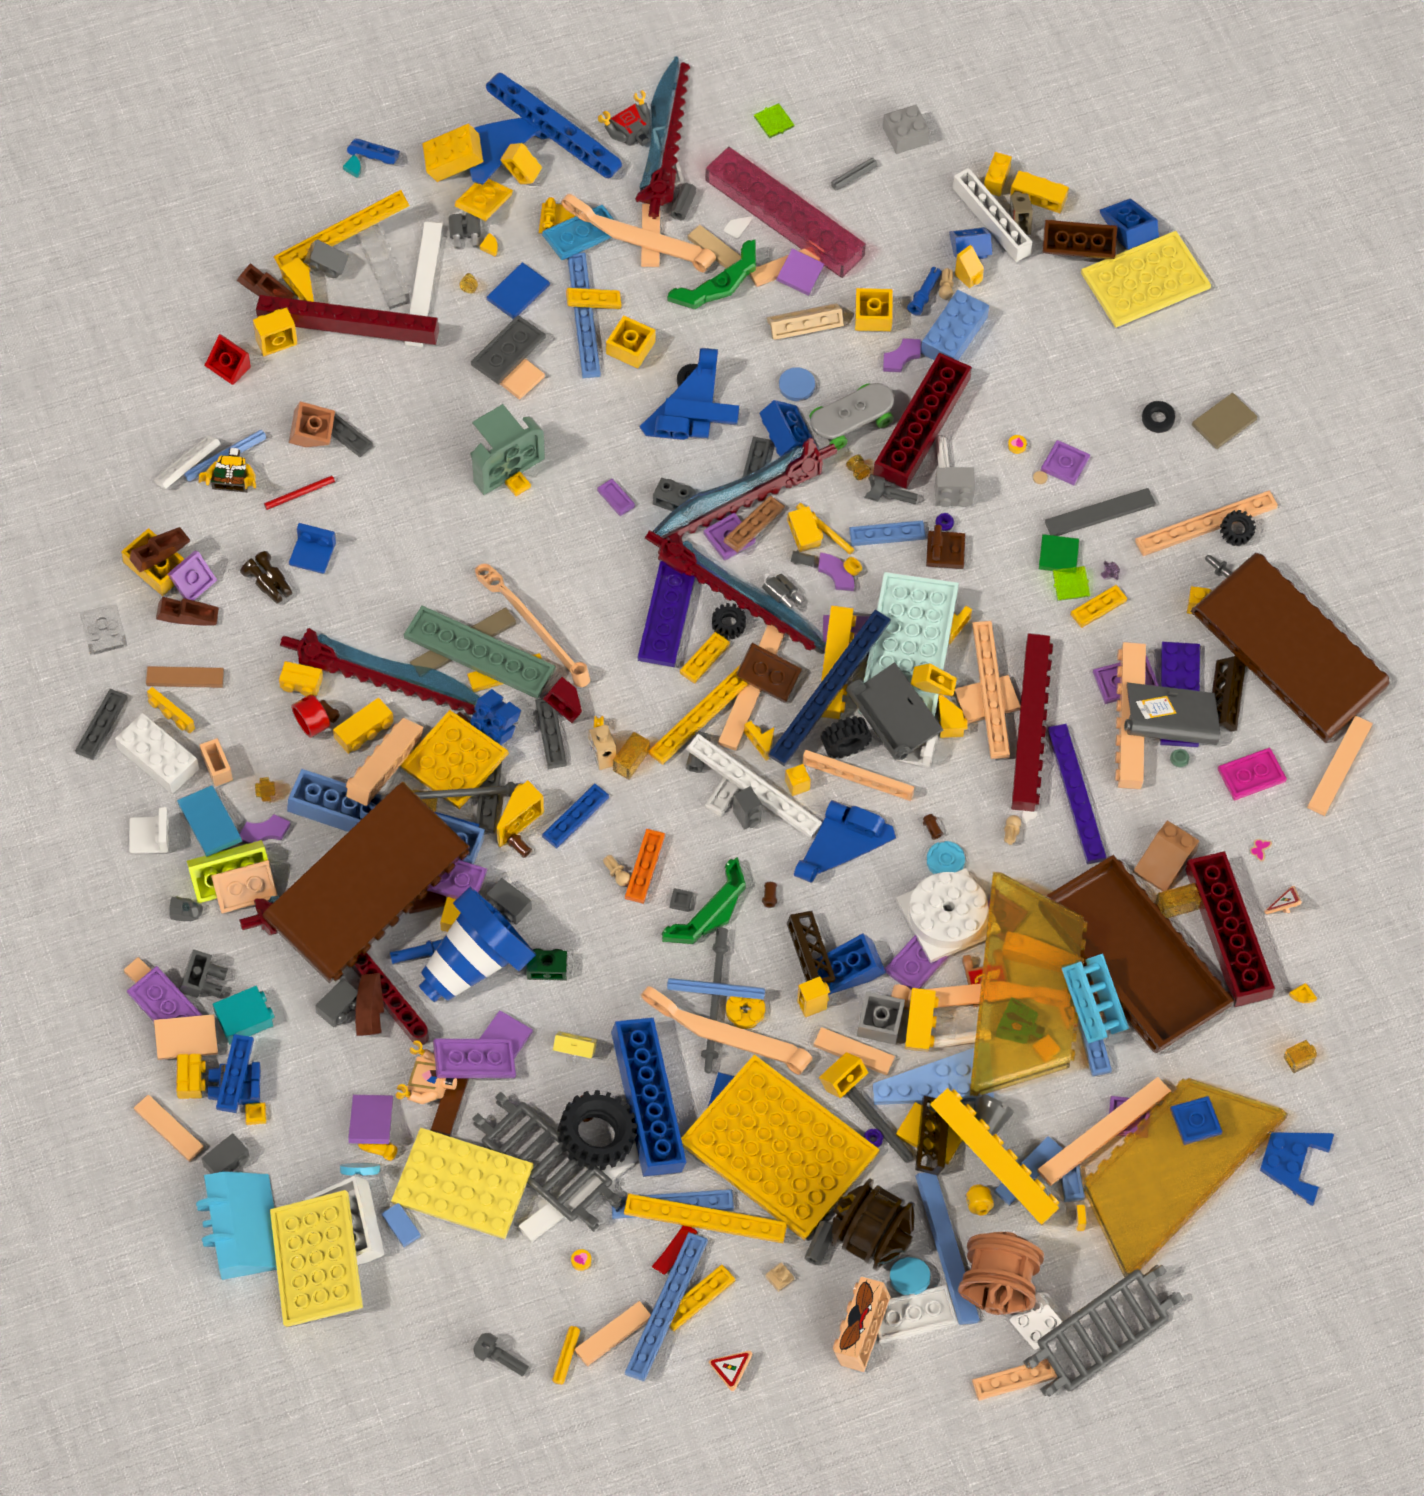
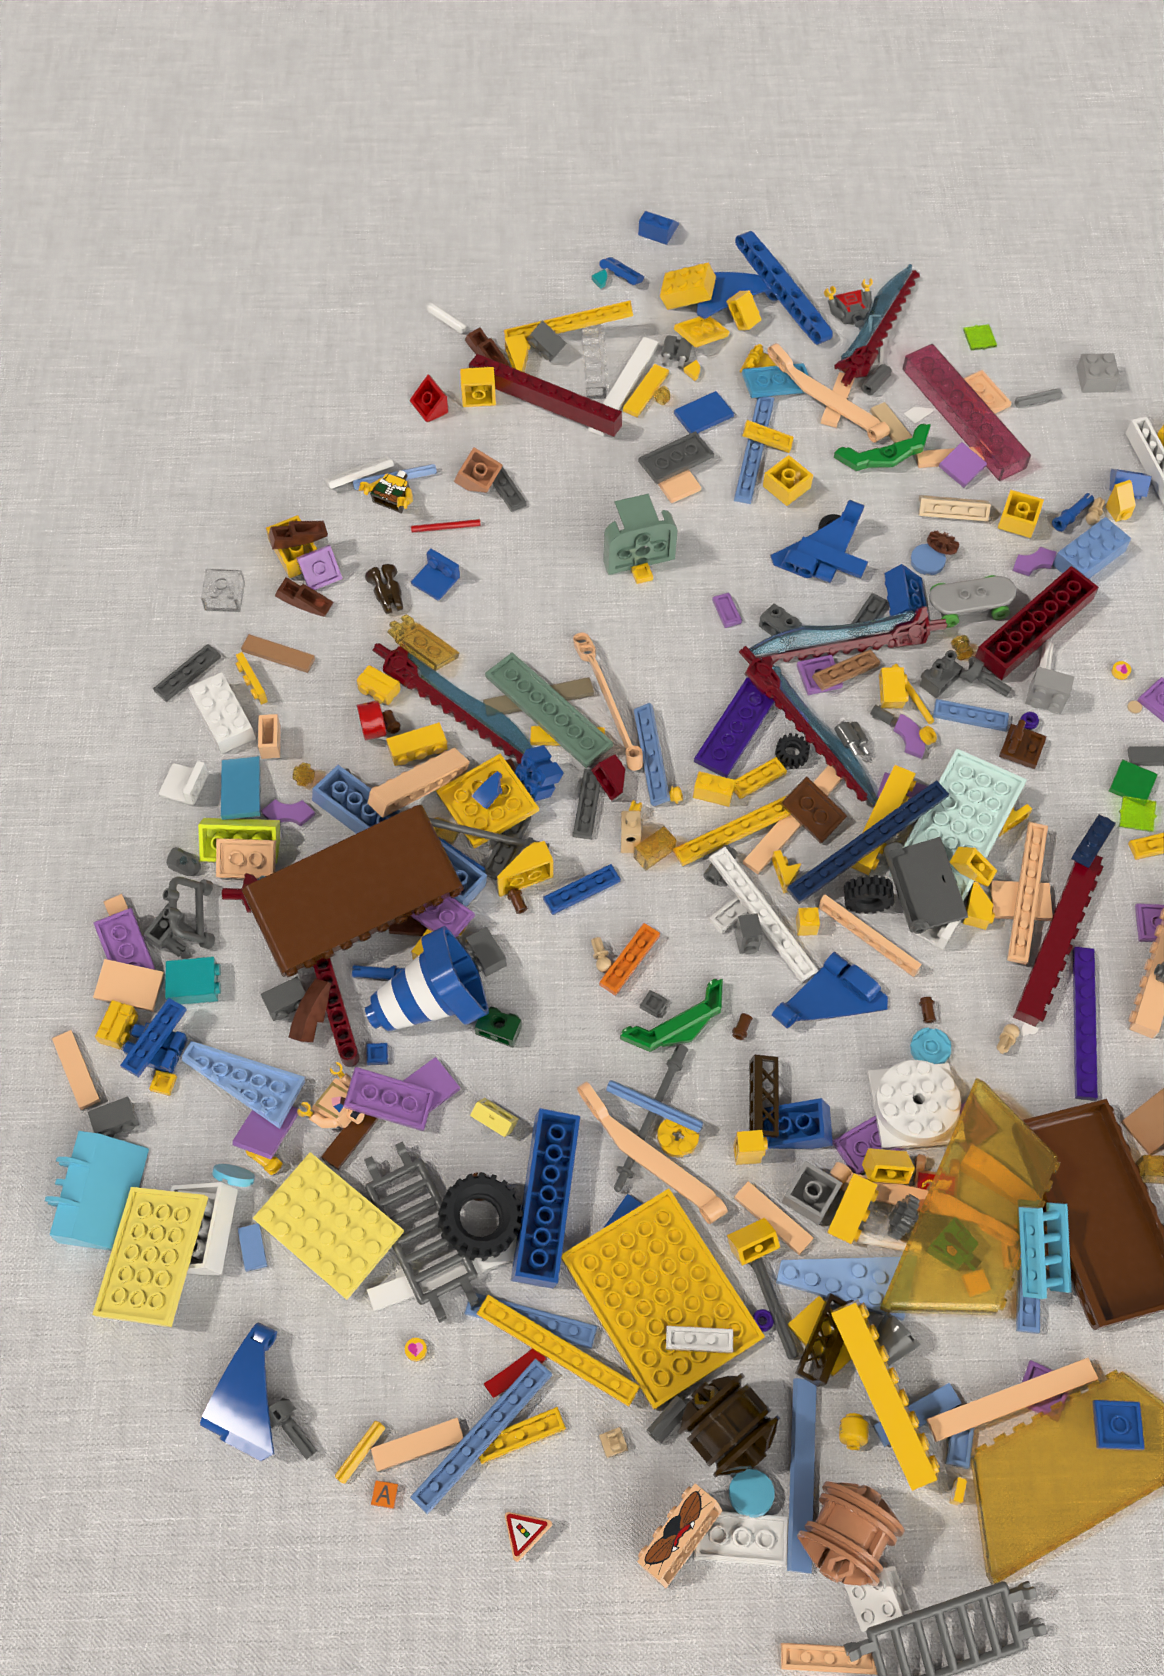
camera: 20 degrees right, 0 degrees up
(206, 260) = (446, 318): none -> white axle
(215, 927) = (204, 887): none -> dark grey bar
(327, 623) = (422, 643): none -> clear yellow tile
(346, 1086) = (255, 1084): none -> light blue wing
(392, 88) = (657, 227): none -> blue slope
(444, 1025) = (377, 1054): none -> blue tile
(448, 282) = (645, 390): none -> yellow tile
(448, 1346) = (240, 1401): none -> blue panel
(454, 749) = (488, 790): none -> blue slope
(595, 664) = (652, 754): none -> medium blue tile
(600, 1381) = (384, 1494): none -> orange tile
(632, 698) = (676, 794): none -> yellow plate
(667, 681) = (714, 788): none -> yellow brick
(800, 182) = (988, 391): none -> light nougat tile
(807, 362) = (943, 543): none -> copper wheel
(824, 1169) = (699, 1339): none -> white tile
(847, 501) = (941, 675): none -> dark grey brick
(940, 973) = (888, 1166): none -> yellow brick
(966, 1011) = (903, 1217): none -> dark grey gear
(1037, 622) = (1093, 840): none -> dark blue plate

